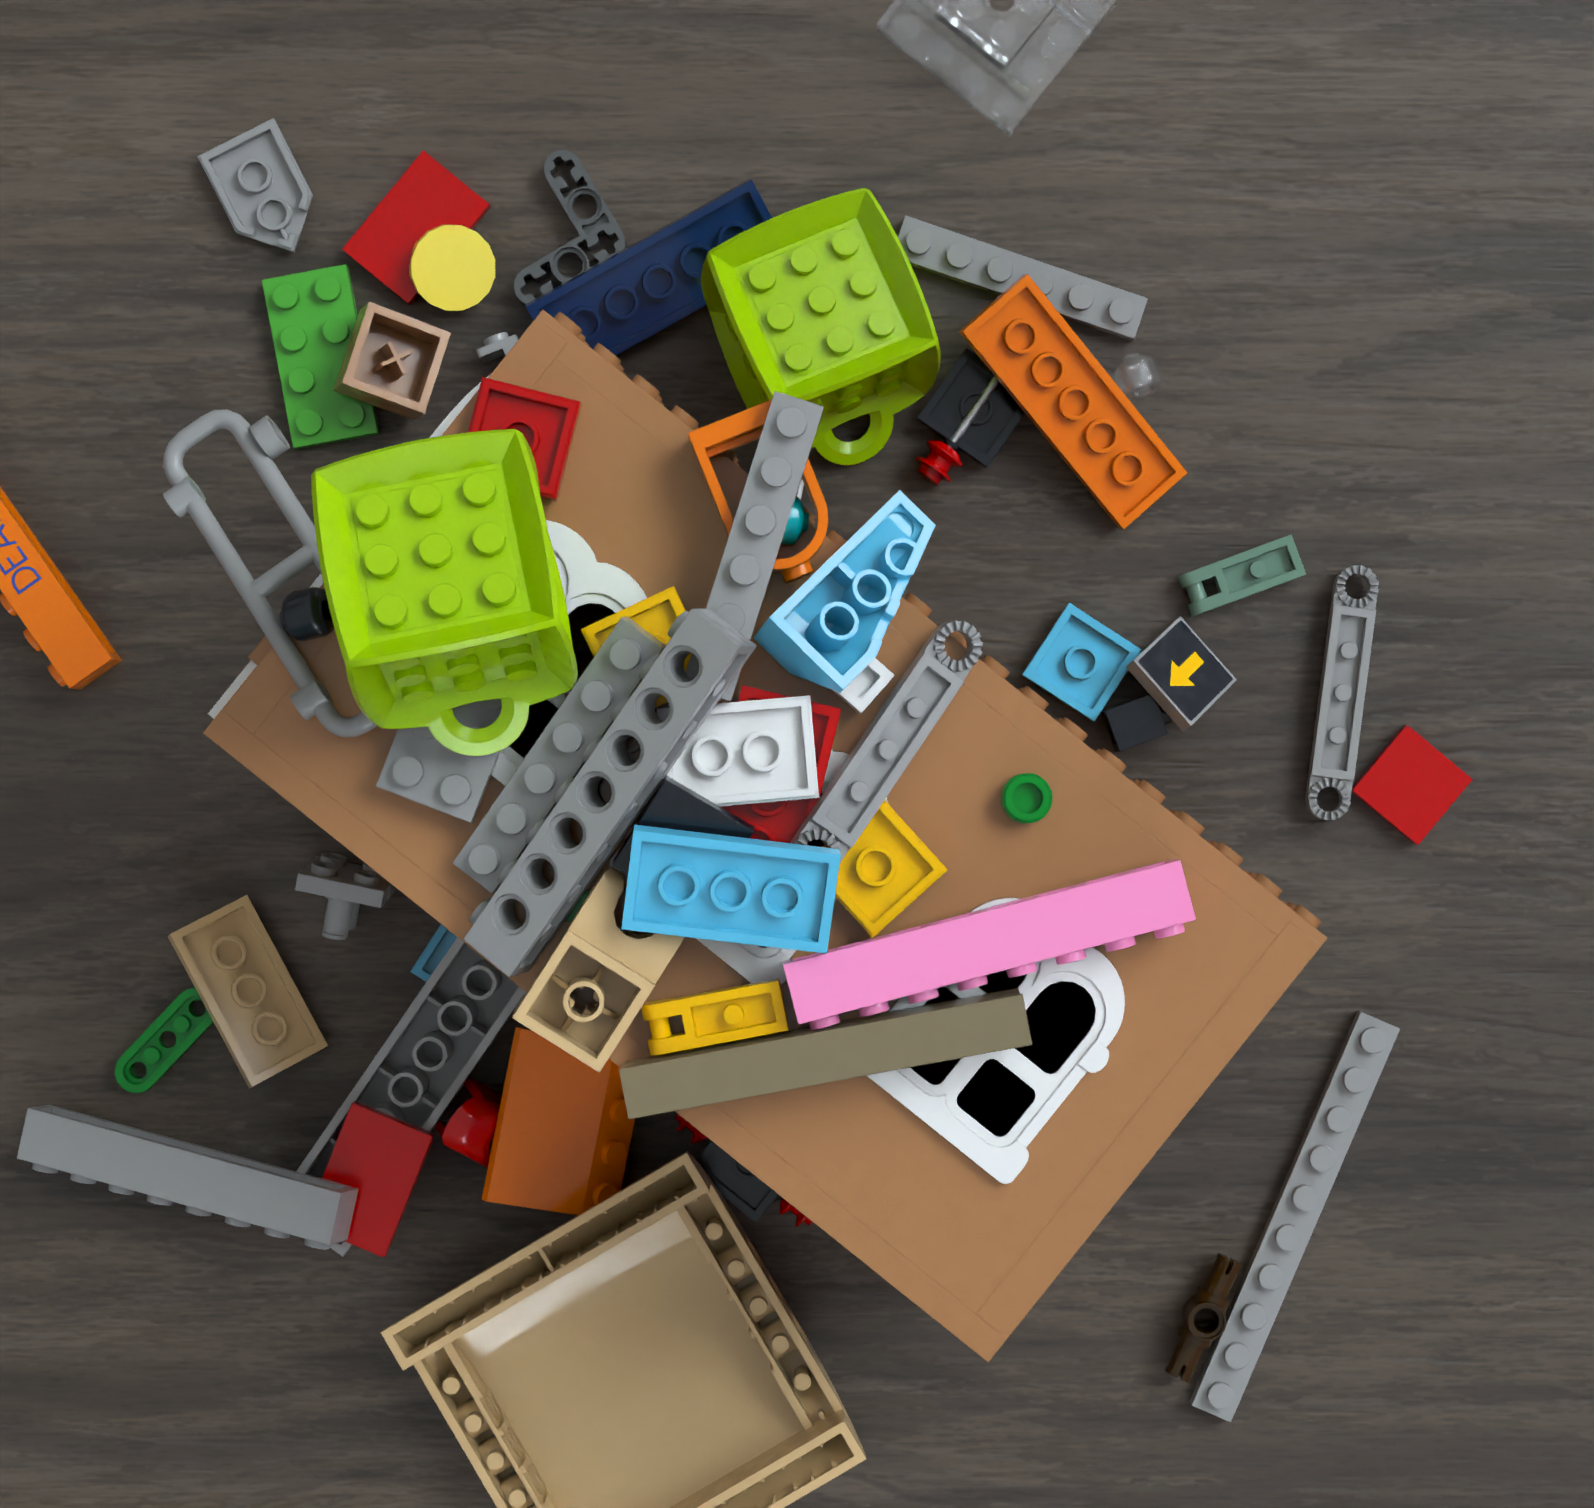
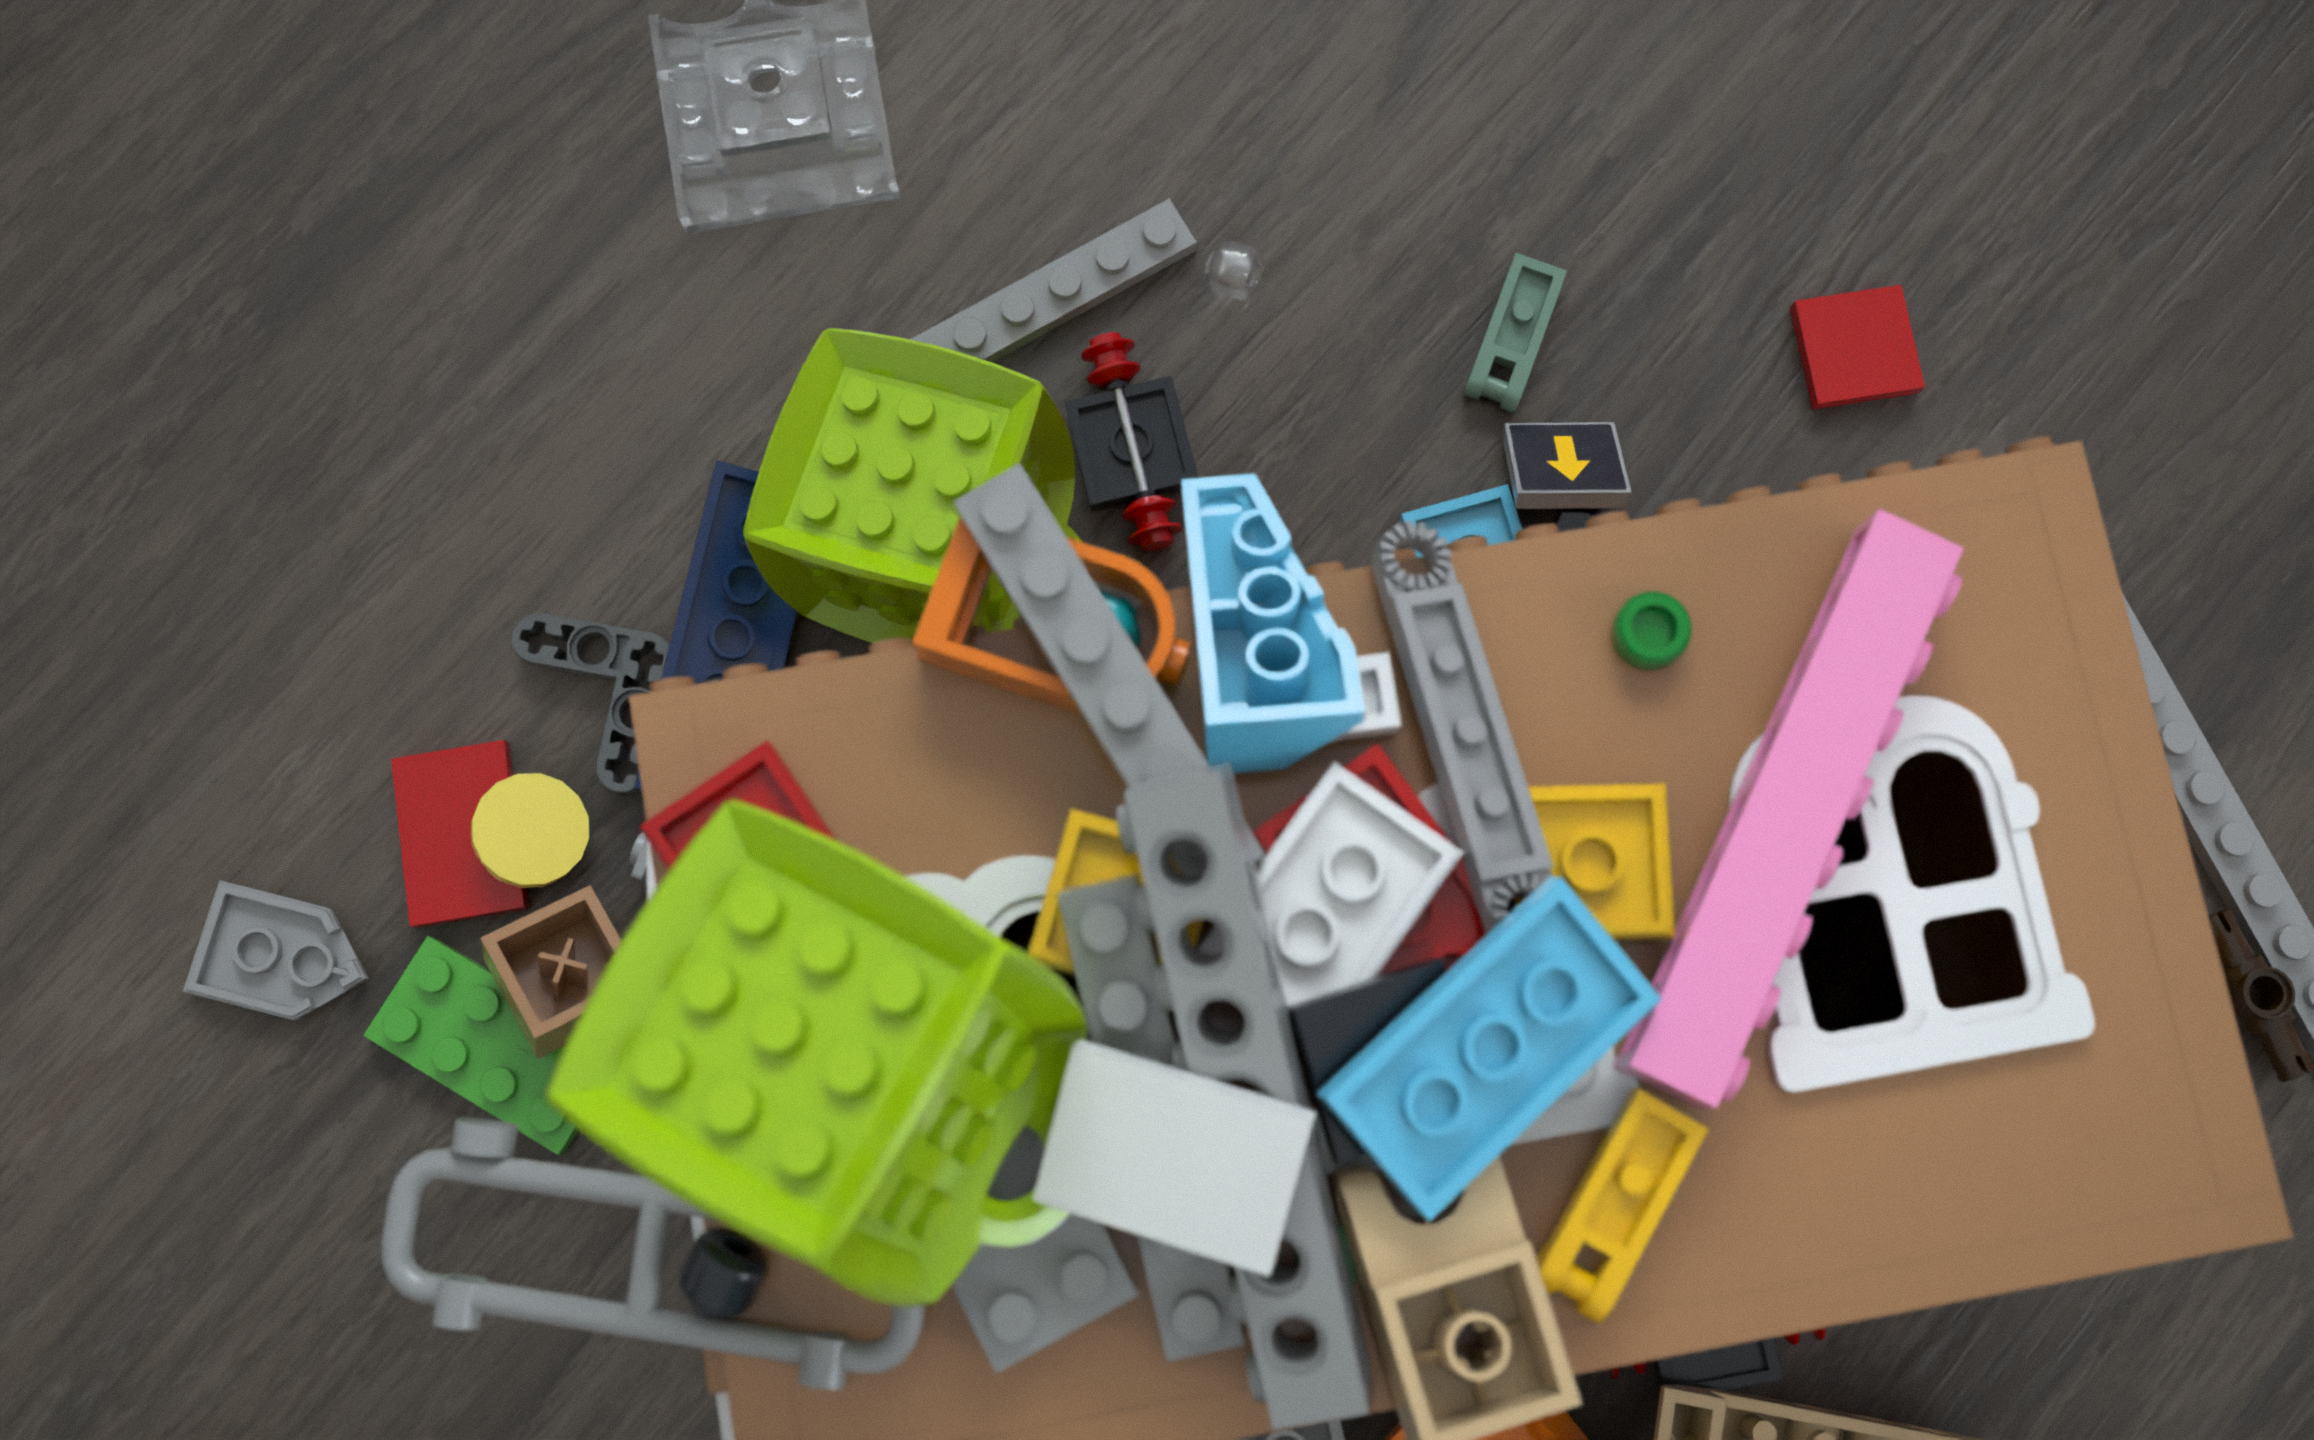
camera: 50 degrees left, 10 degrees down
(545, 781) = (1173, 1156): none -> white tile
(825, 1054) = (1766, 1129): dark tan tile -> none
(1073, 401) = (1207, 341): orange plate -> none
(1342, 692) = (1713, 336): light grey plate -> none

